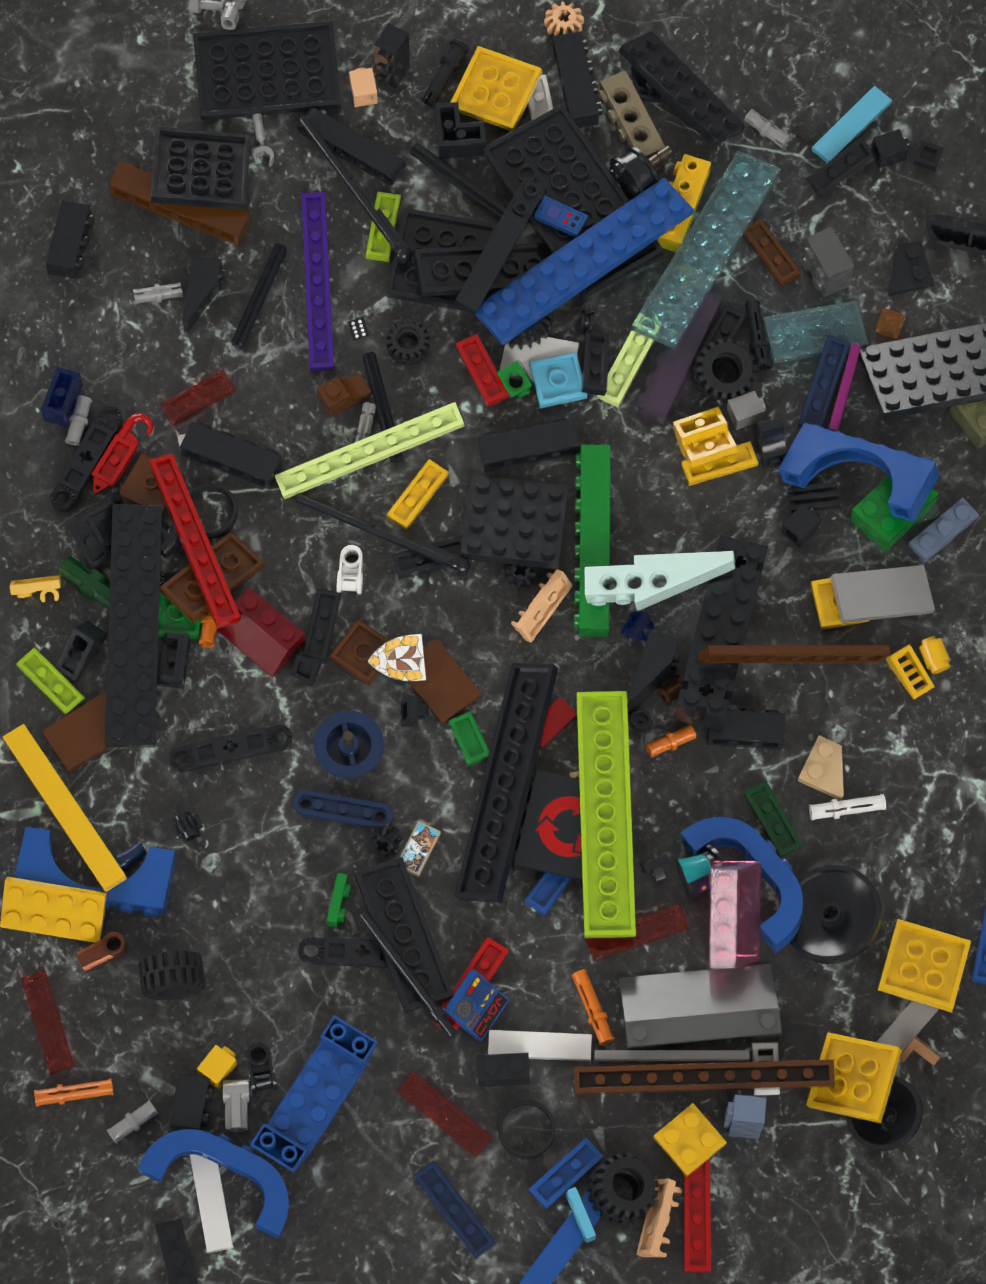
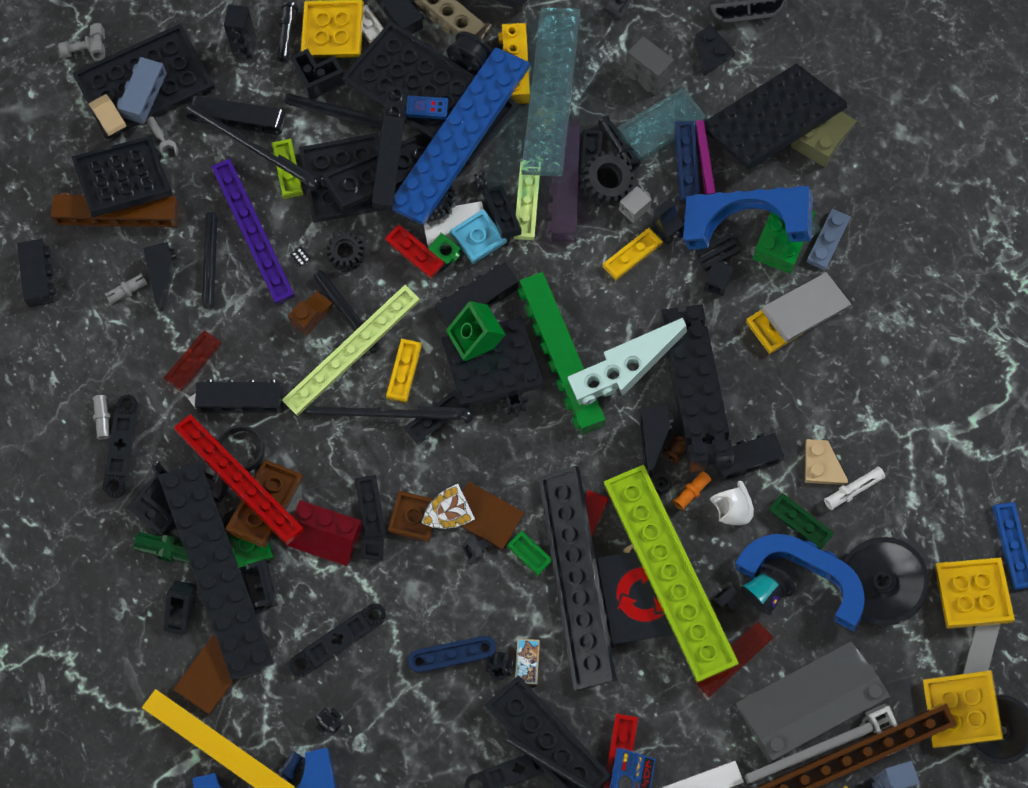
camera: 20 degrees left, 0 degrees up
(26, 587) = (111, 573): yellow plate -> none
(50, 681) = (164, 643): lime tile -> none
(61, 397) = (79, 403): clear blue brick -> none
(118, 454) = (146, 432): red plate -> none
(141, 485) = (175, 450): reddish brown plate -> none
(208, 631) = (280, 550): orange pin -> none
(212, 94) = (107, 114): none -> tan slope
(259, 81) = (141, 90): none -> sand blue brick
(337, 911) = (483, 742): green plate -> none
(348, 744) = (435, 598): dark blue piece -> none
(350, 574) = (377, 456): white piece -> none
(363, 87) = (226, 65): light nougat brick -> none
(366, 421) = (338, 328): light grey axle -> none
(509, 480) = (475, 331): none -> green slope
(543, 605) = (543, 421): light nougat plate -> none
(546, 892) = (646, 656): blue tile -> none
(597, 1017) = (726, 737): orange pin -> none
(635, 625) = (624, 407): clear blue tile -> none
(704, 437) = (613, 237): yellow brick -> none
(708, 773) = (734, 505): none -> white piece
(734, 913) = (808, 613): clear pink slope -> none
(771, 253) = (600, 76): reddish brown tile -> none
(794, 653) = (762, 382): reddish brown tile -> none
(890, 323) = (715, 95): clear orange tile -> none
(912, 659) = (843, 361): yellow slope -> none
(922, 1049) = (1004, 662): medium nougat tile -> none
(934, 655) = (867, 339): yellow brick -> none

